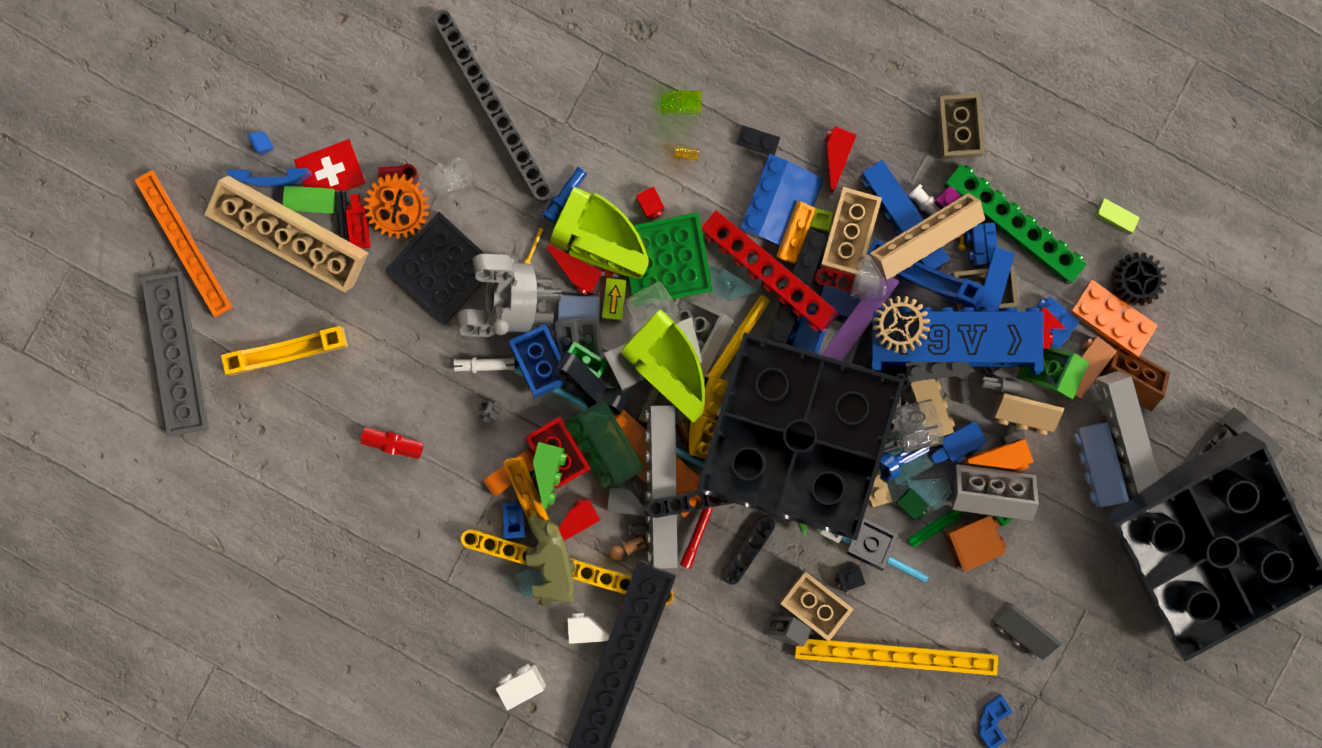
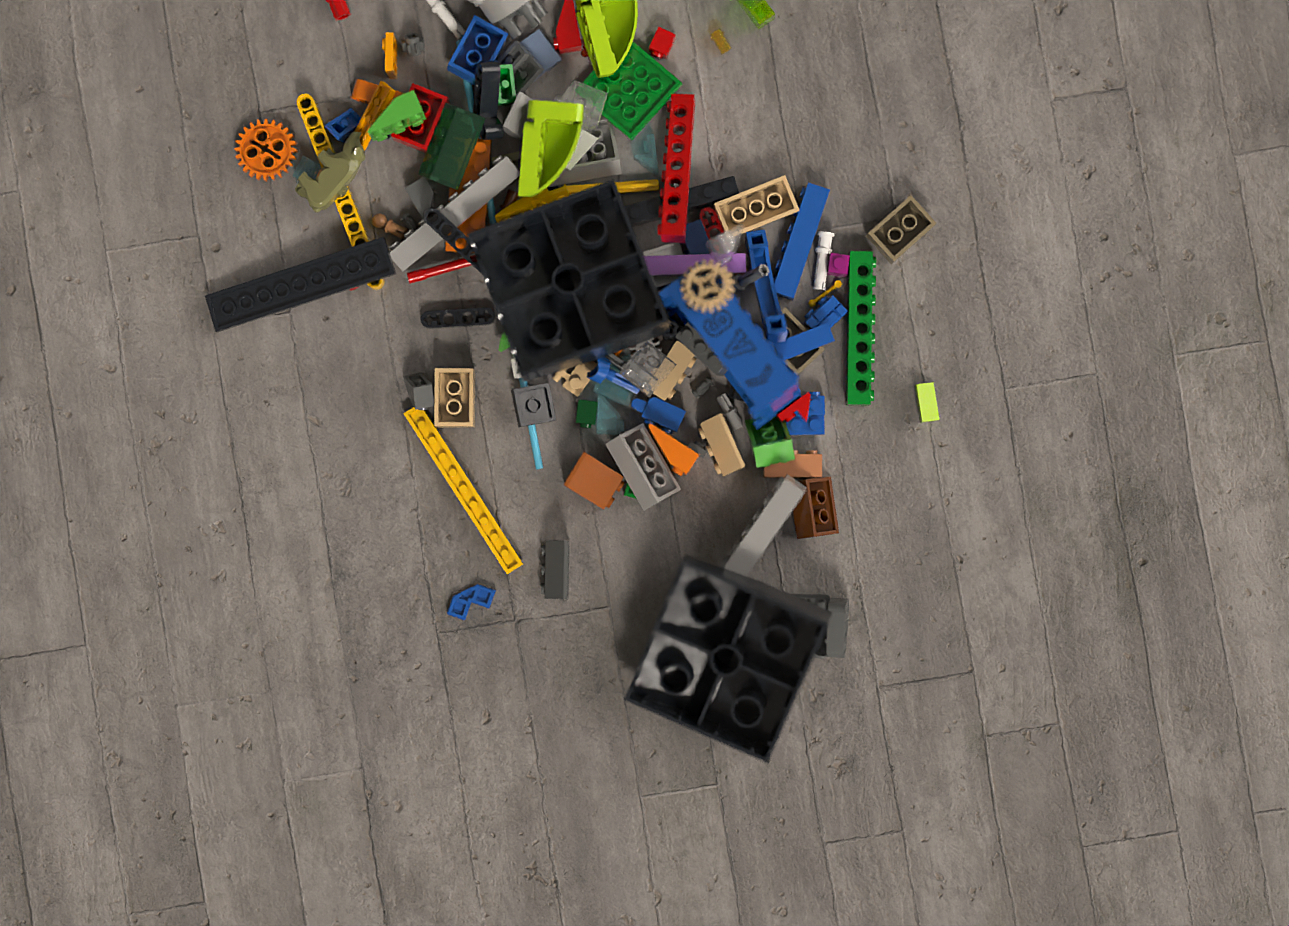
camera: 55 degrees right, 0 degrees up
(479, 432) = (390, 46): none -> light orange plate
(490, 619) = (257, 164): none -> orange gear
(521, 686) = (223, 224): white brick -> none
(579, 518) = (382, 172): red slope -> none
(585, 629) = (303, 240): white slope -> none
(614, 299) = (568, 72): lime tile -> none
(758, 141) = (772, 88): black plate -> none
(776, 197) = (738, 141): blue slope -> none
(796, 232) = (724, 168): light orange tile -> none
(805, 337) = (648, 235): blue slope -> none
(821, 220) = (749, 180): lime tile -> none
(837, 152) = (811, 153): red slope -> none
(849, 578) = (494, 409): black bracket -> none
(912, 272) = (742, 281): none -> dark grey pin
(928, 236) = (796, 265): tan brick -> none
(934, 528) = (582, 444): green axle -> none
(1101, 465) = (727, 529): light blue slope -> none
(1113, 319) = (845, 458): orange plate -> none
(1139, 287) = (884, 447): black gear -> none

